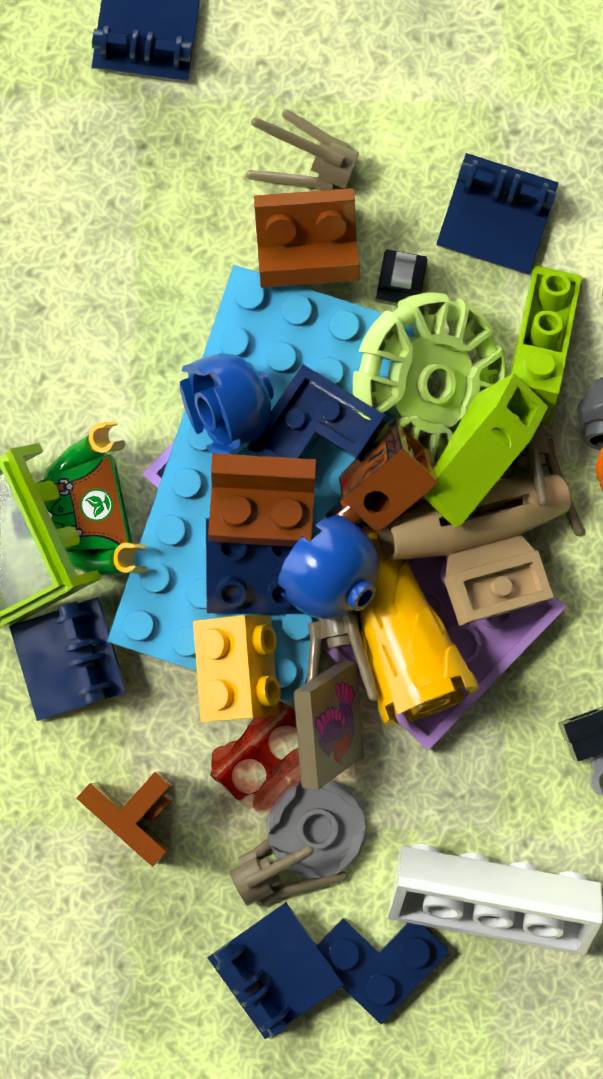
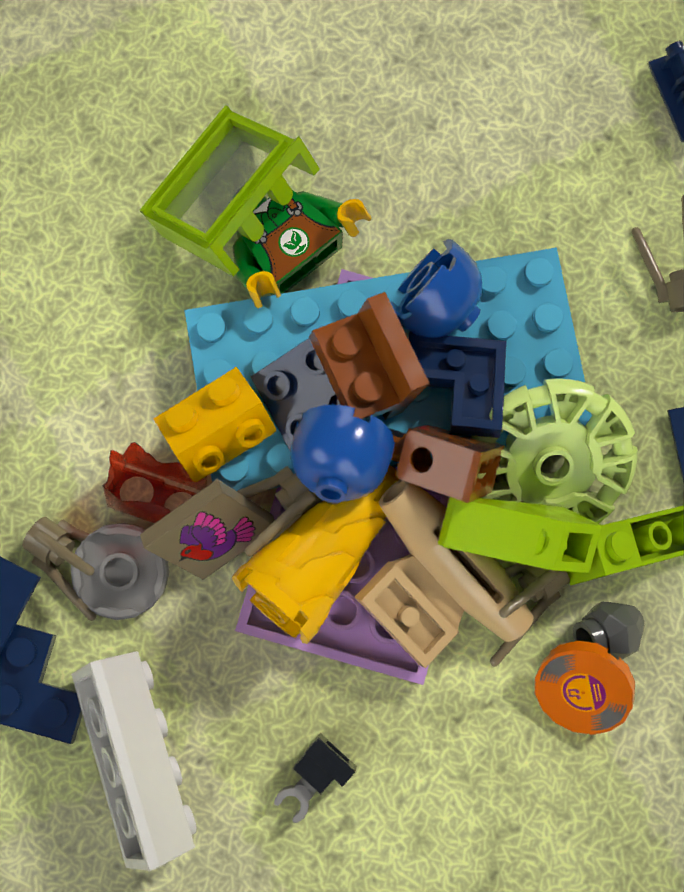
camera: 60 degrees right, 5 degrees down
(68, 659) = (156, 290): dark blue hinge -> none
(127, 820) = (42, 405): dark orange bracket -> none
(307, 237) = (615, 292): dark orange bracket -> none
(400, 276) = (630, 390): black piece -> none

